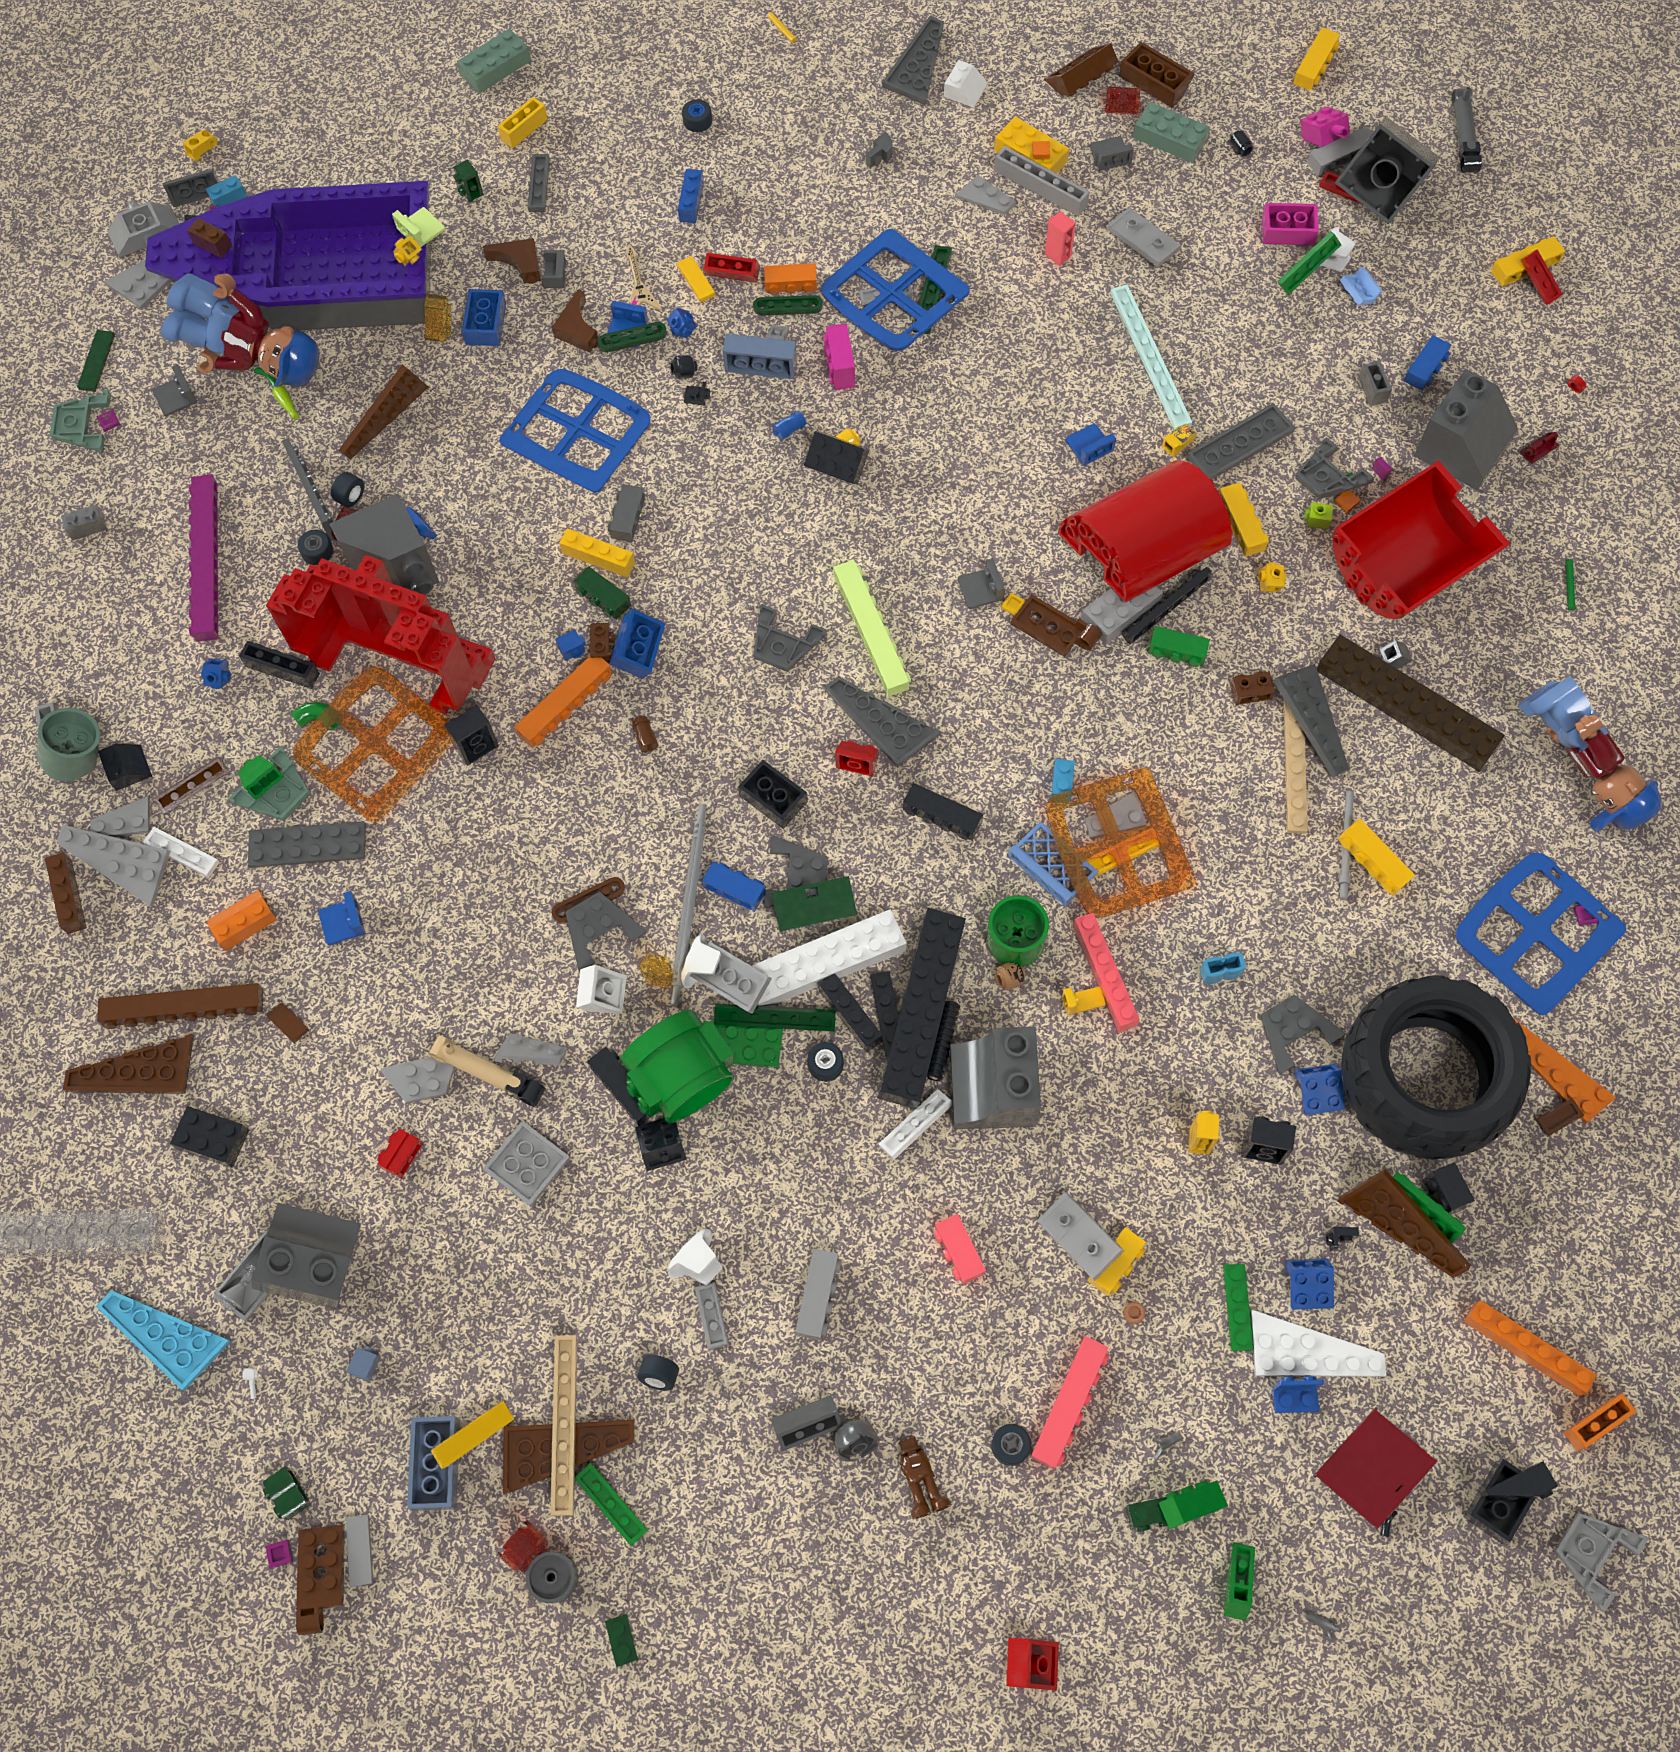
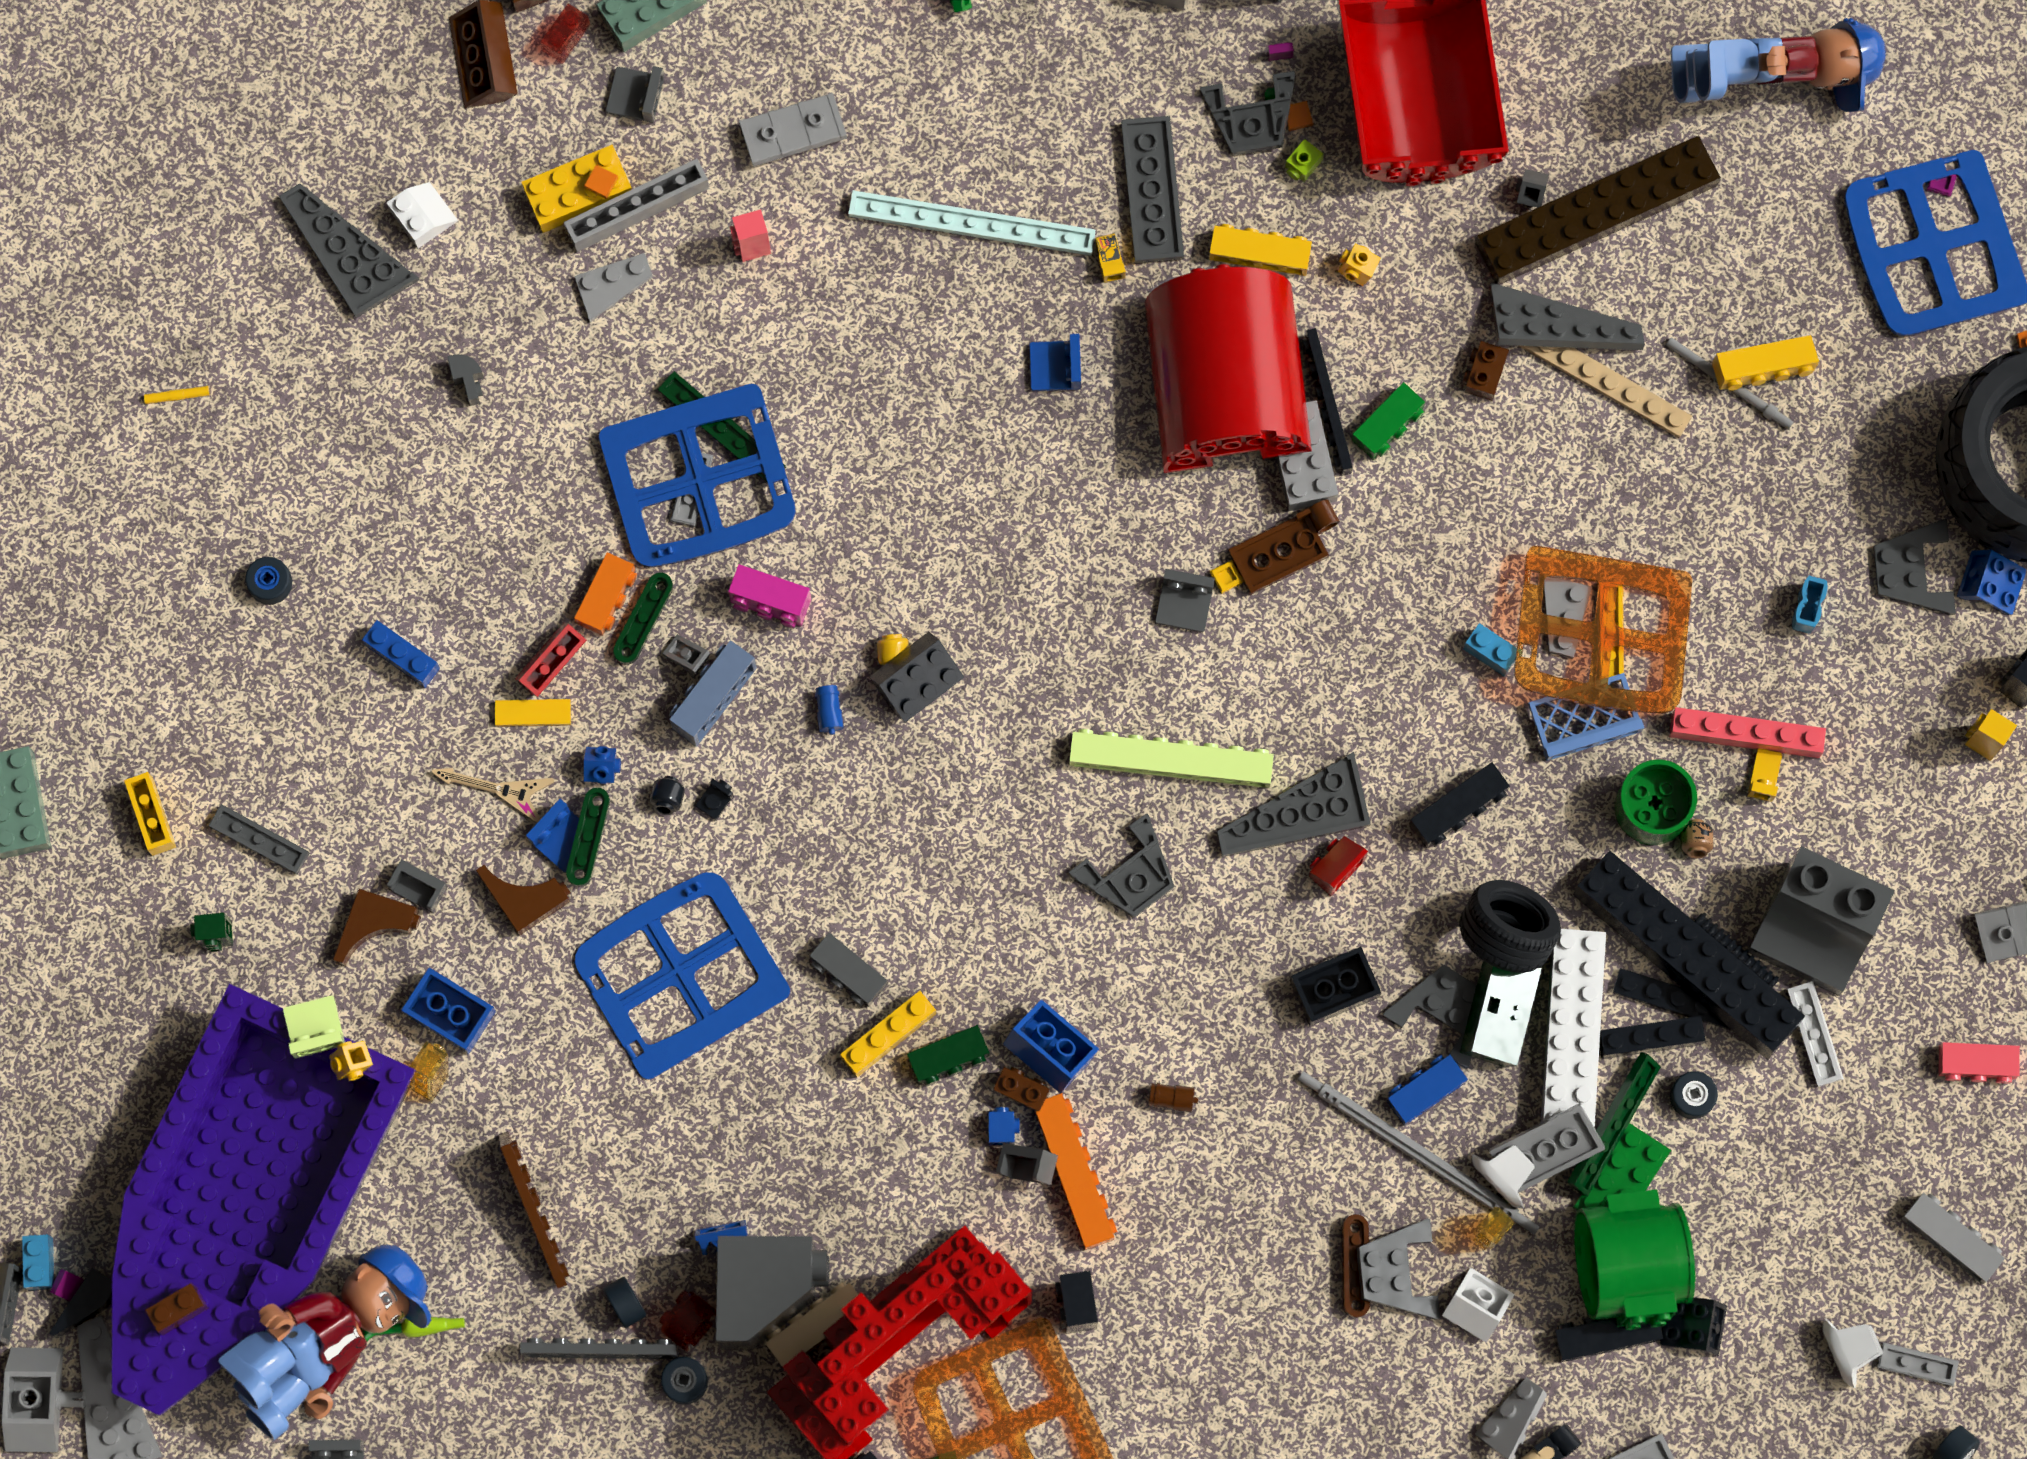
camera: 65 degrees left, 10 degrees up
(552, 667) = (1026, 1164): none -> dark grey panel
(854, 878) = (1509, 926): none -> black tyre

